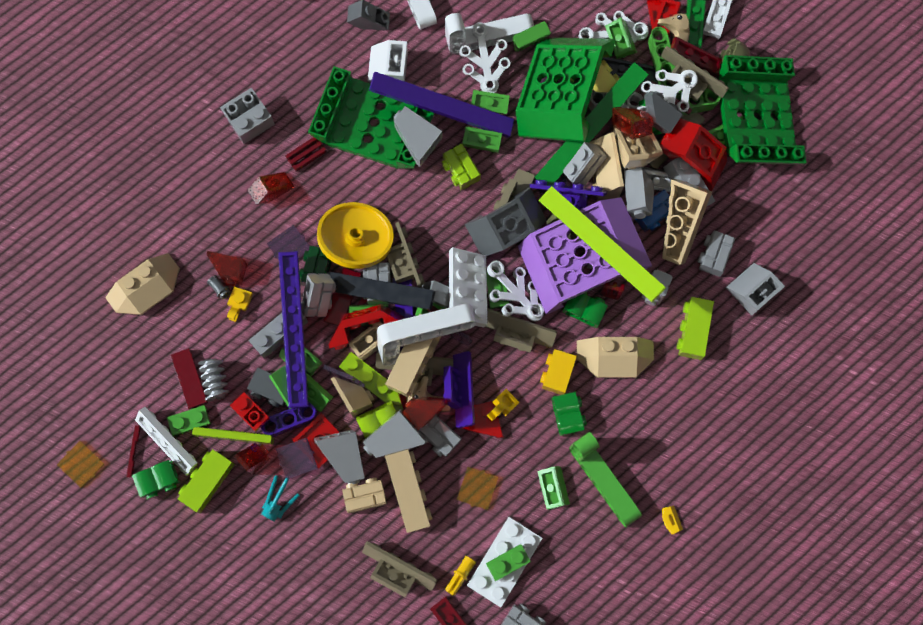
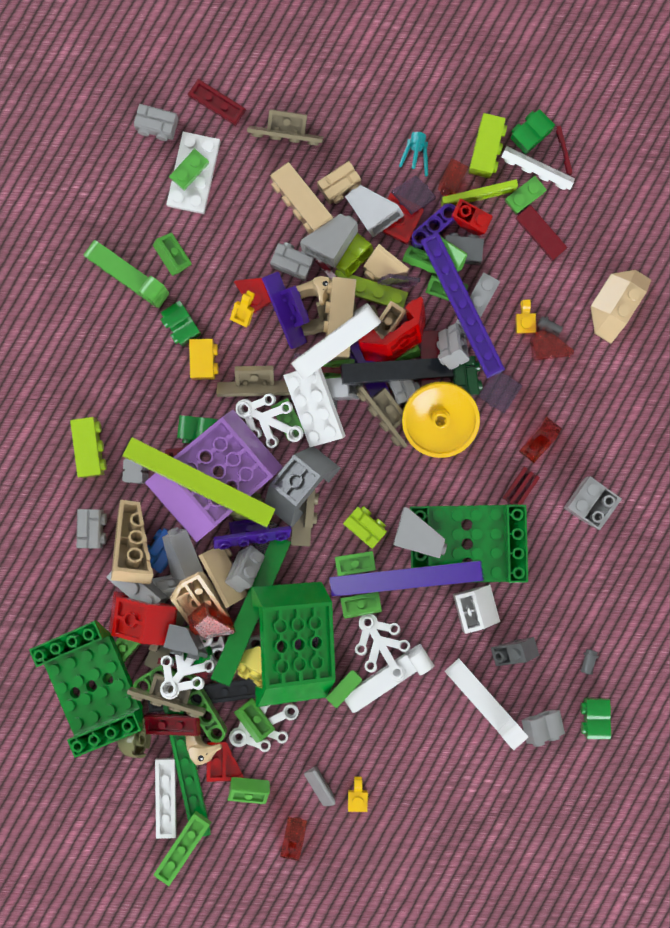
camera: 160 degrees right, 10 degrees up
(80, 464) = (606, 123): clear yellow piece -> none
(213, 379) = (517, 238): light grey piece -> none
(423, 410) = (312, 272): clear red slope -> none
(460, 575) = (228, 145): yellow axle -> none
(477, 488) = (240, 229): clear yellow piece -> none
(615, 356) = (154, 393): tan wedge -> none
(671, 519) = (56, 263): yellow piece -> none
(755, 287) = (42, 506): light grey slope -> none

